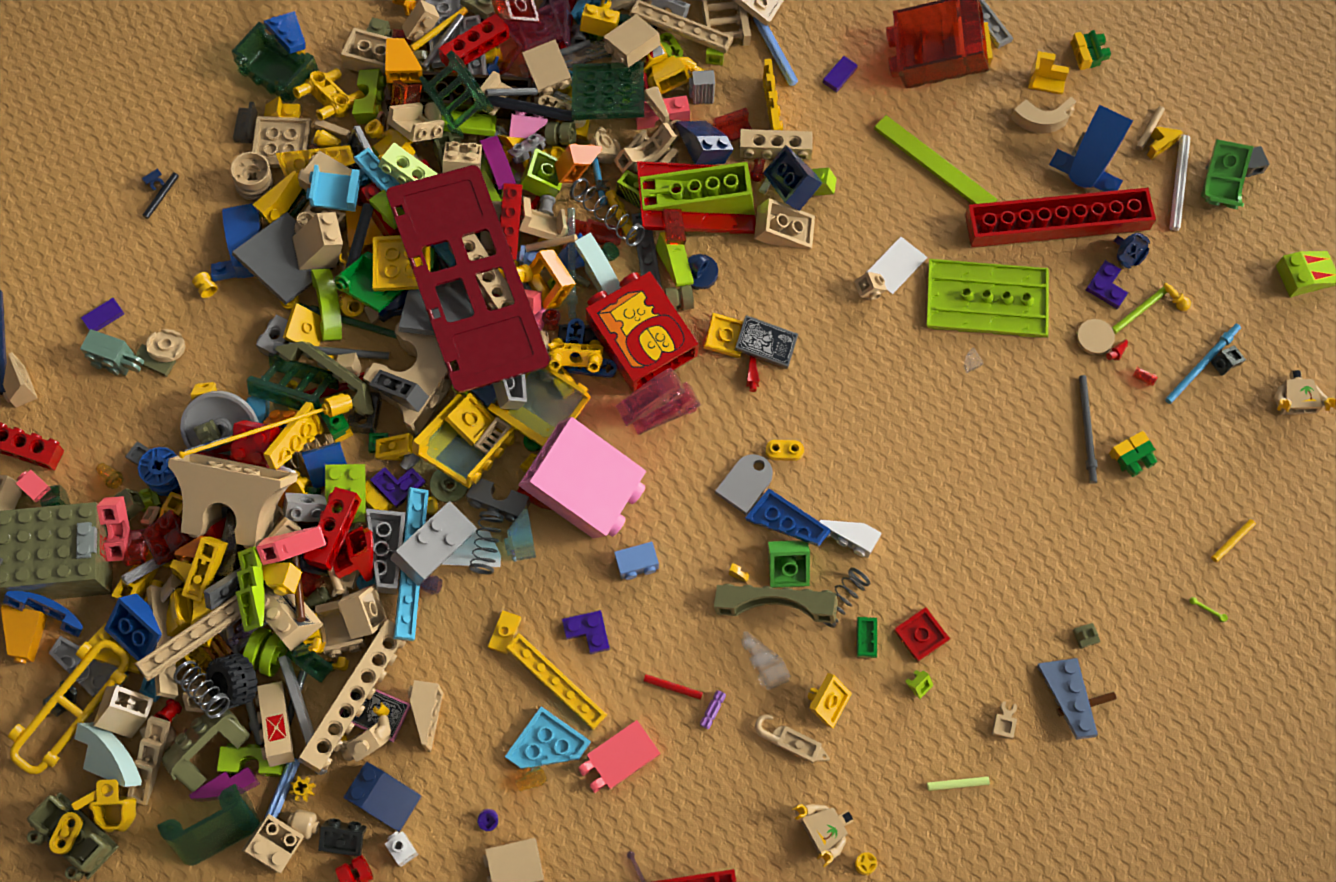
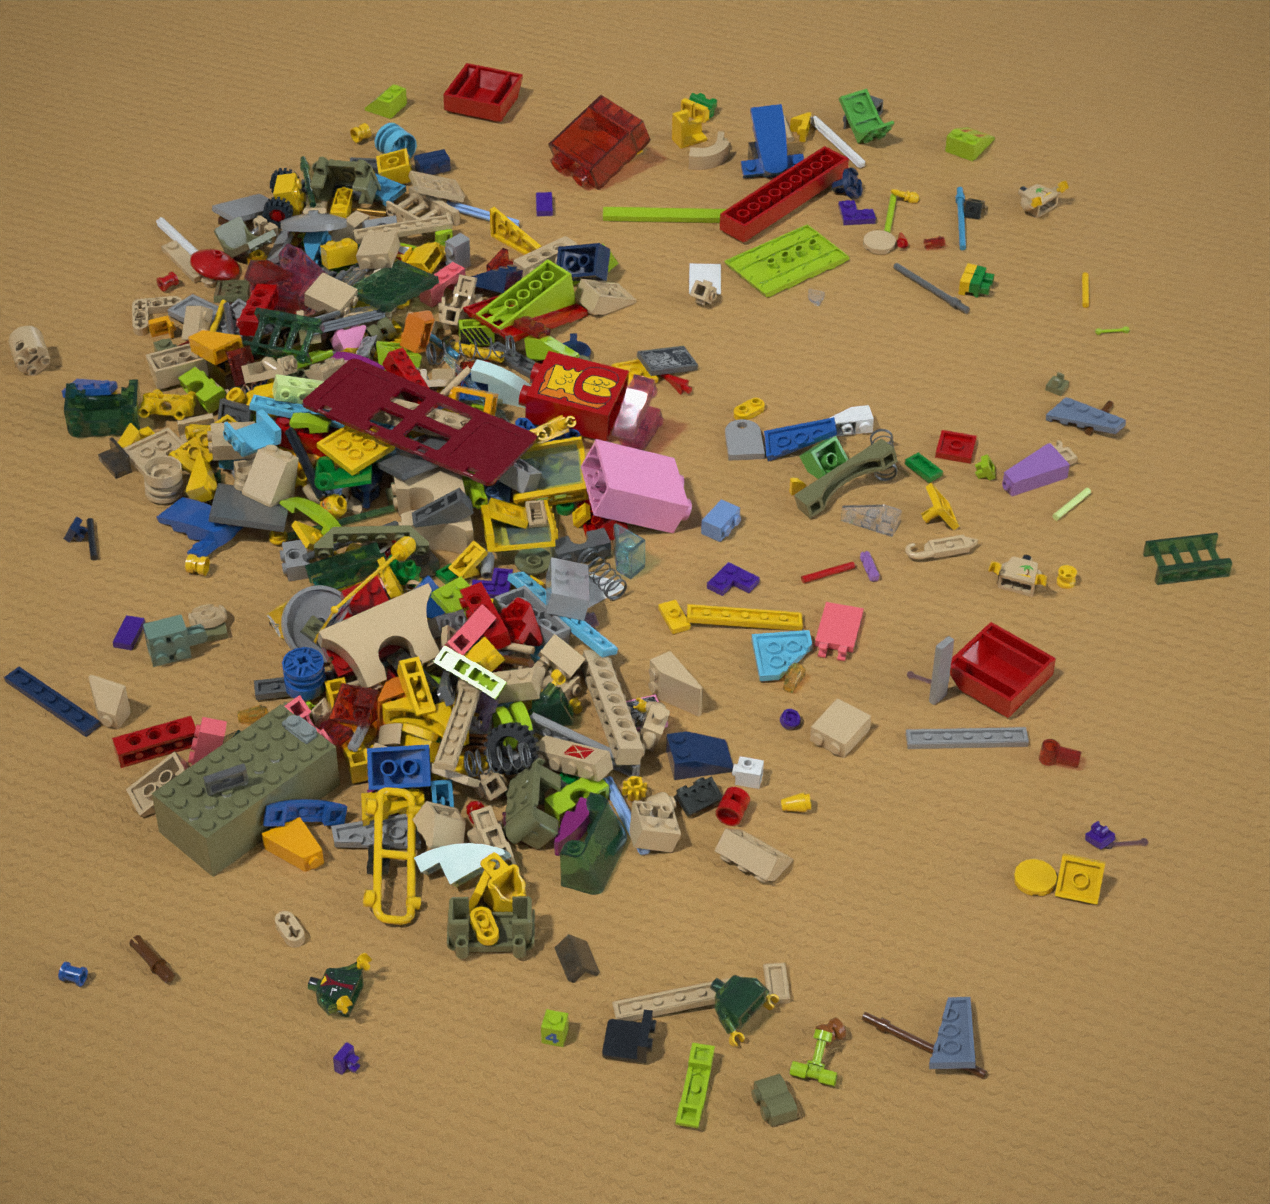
camera: 40 degrees left, 25 degrees down
(655, 101) = (438, 269): tan slope -> none
(961, 722) = (1035, 471): none -> medium lavender slope

